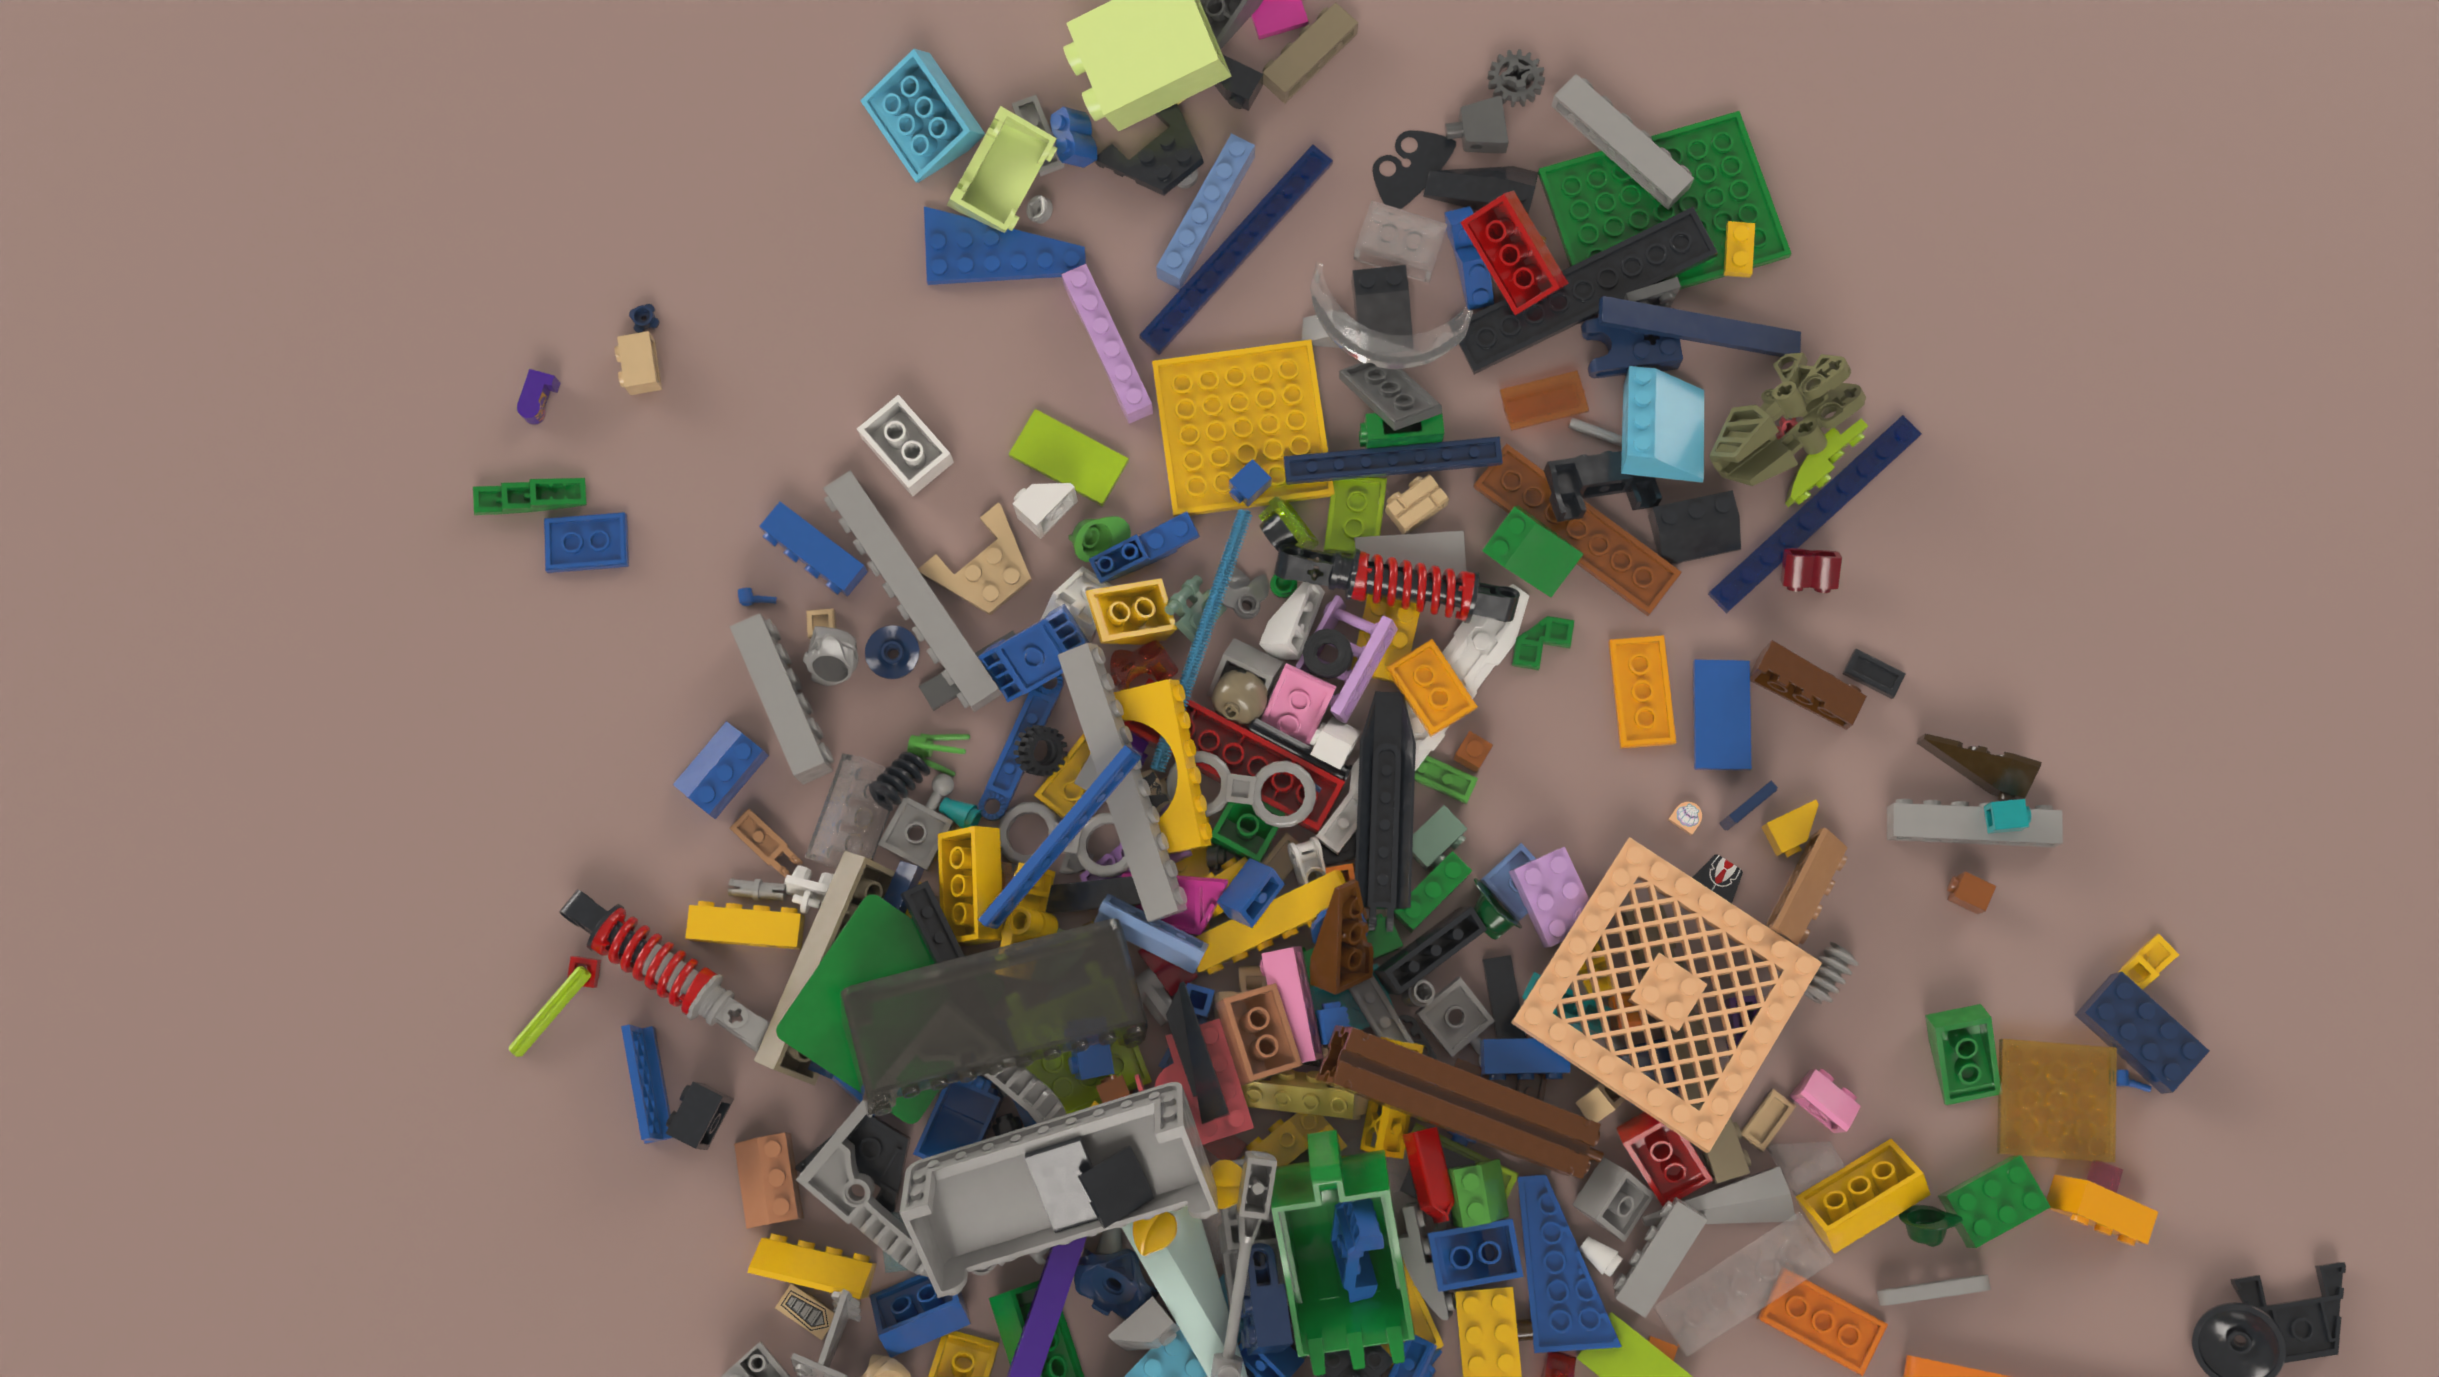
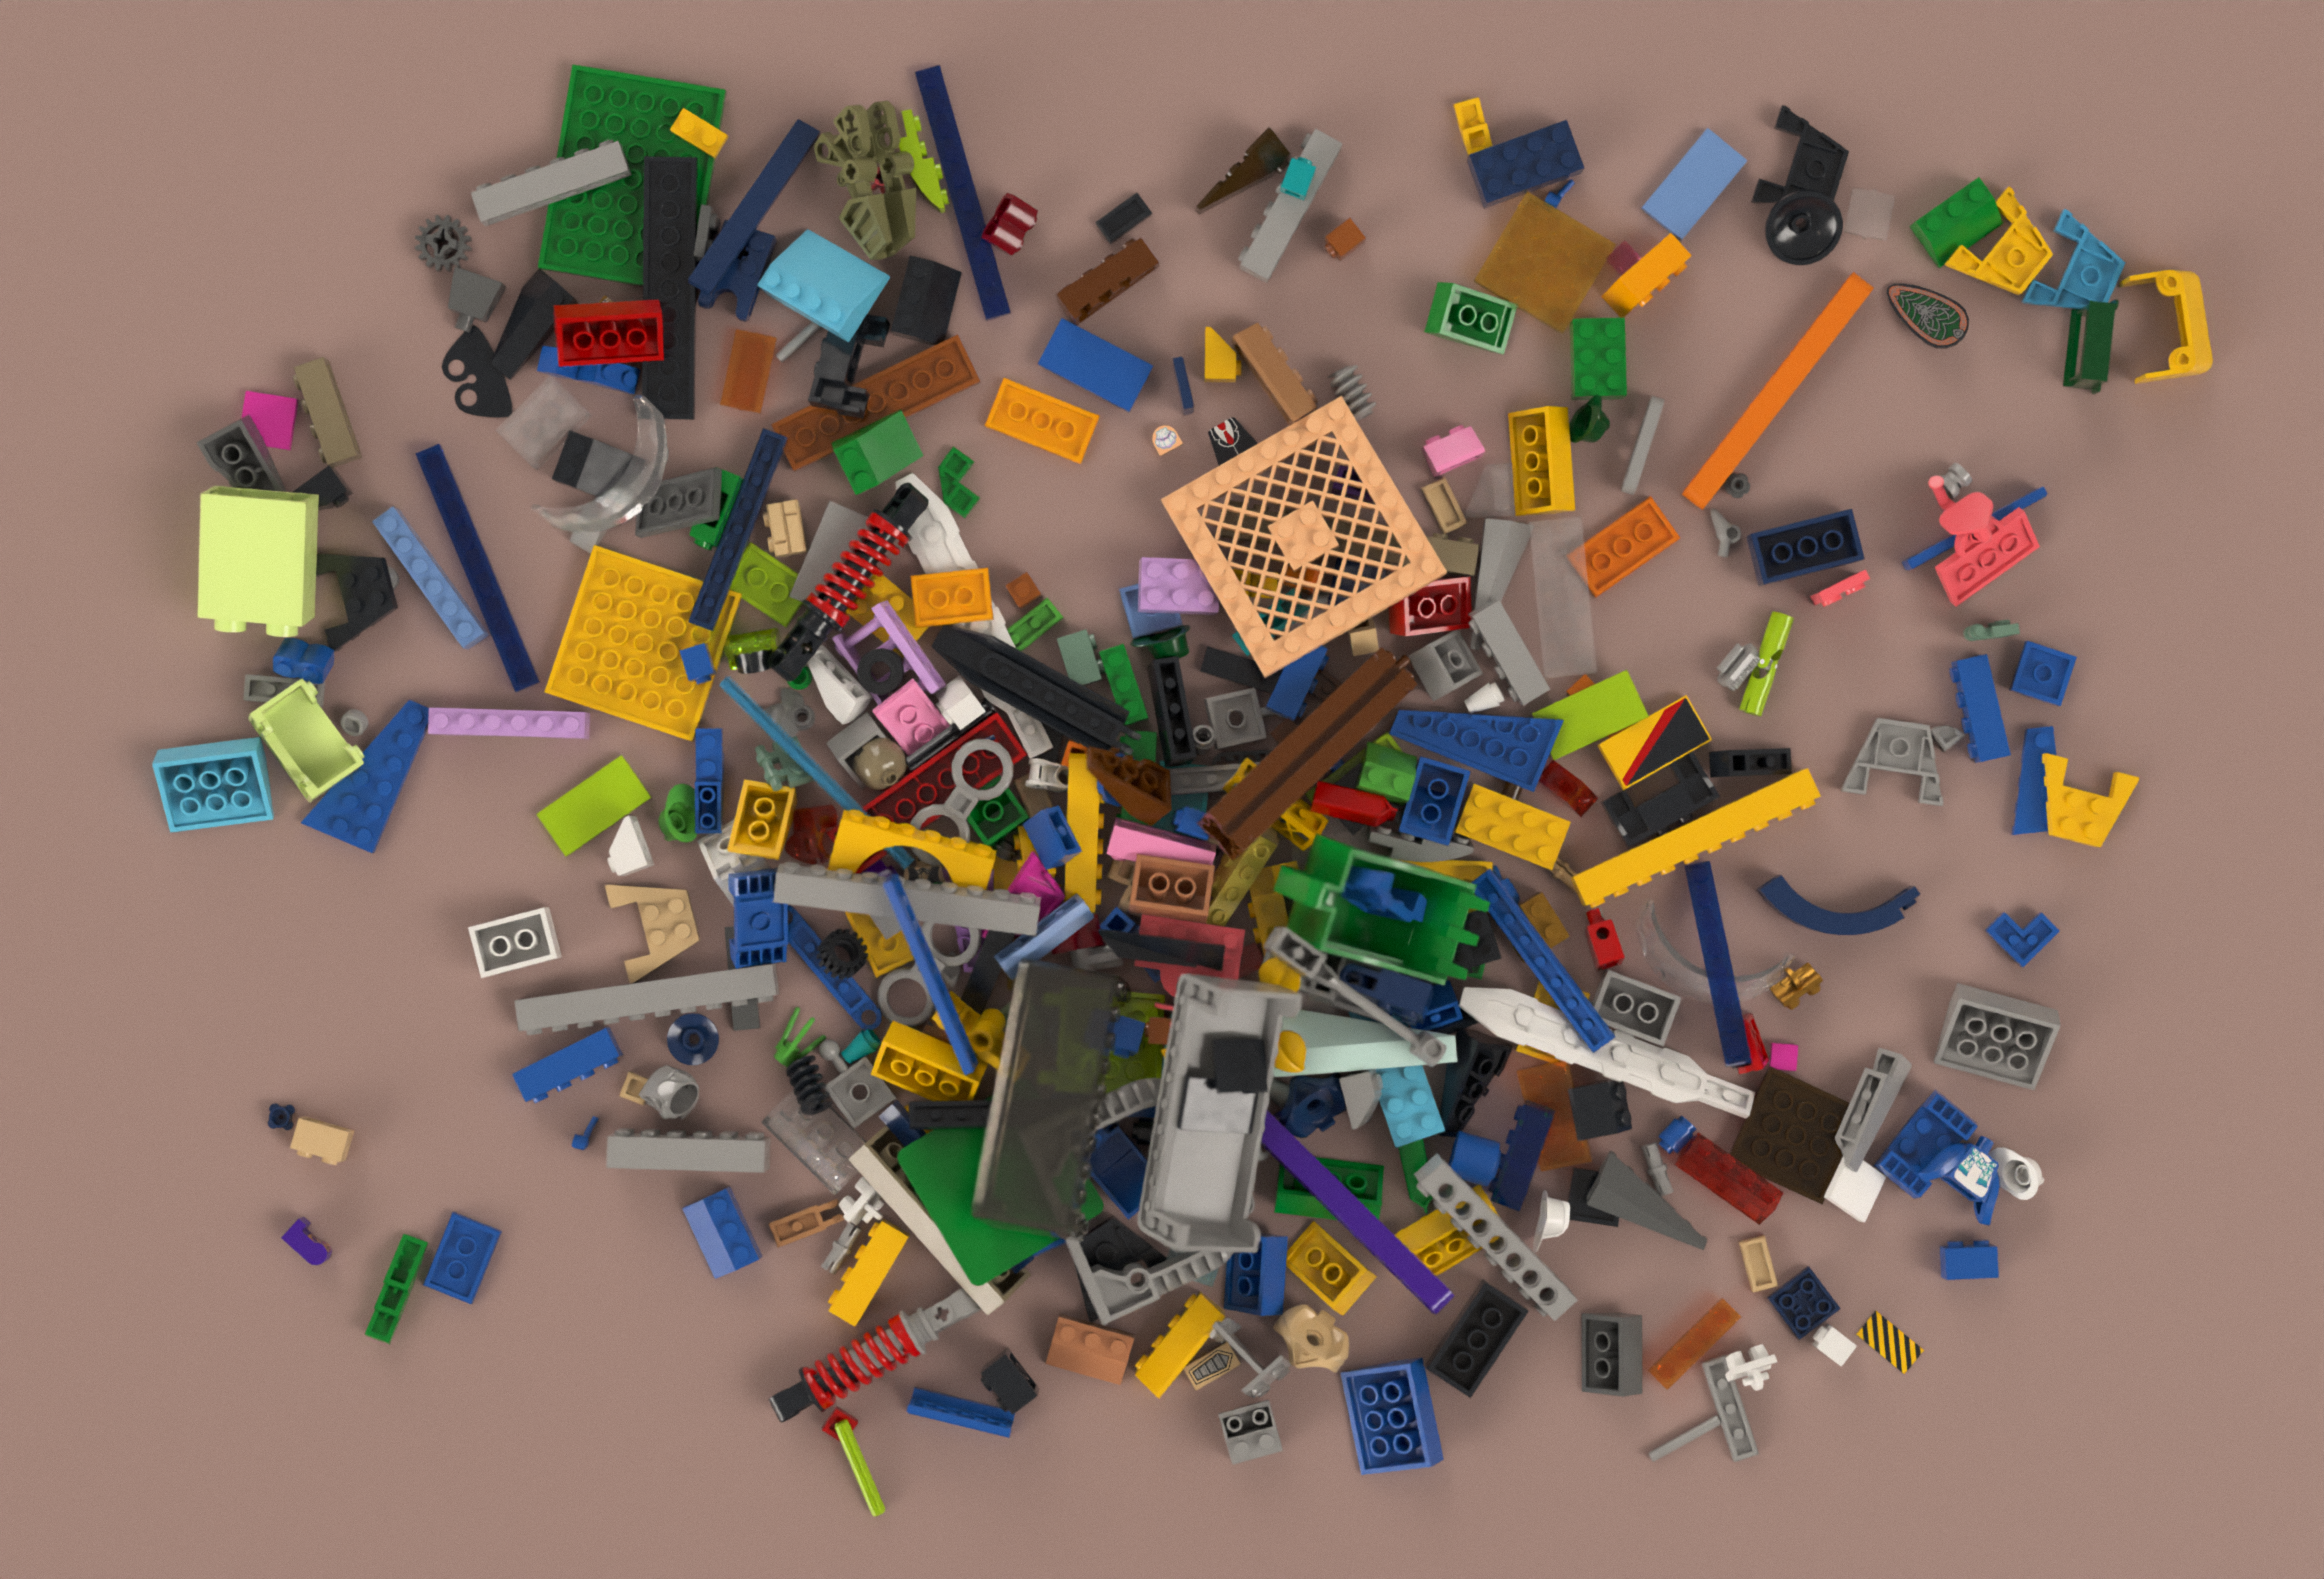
camera: 65 degrees left, 10 degrees up
(2215, 1212) = (1694, 184): none -> medium blue tile

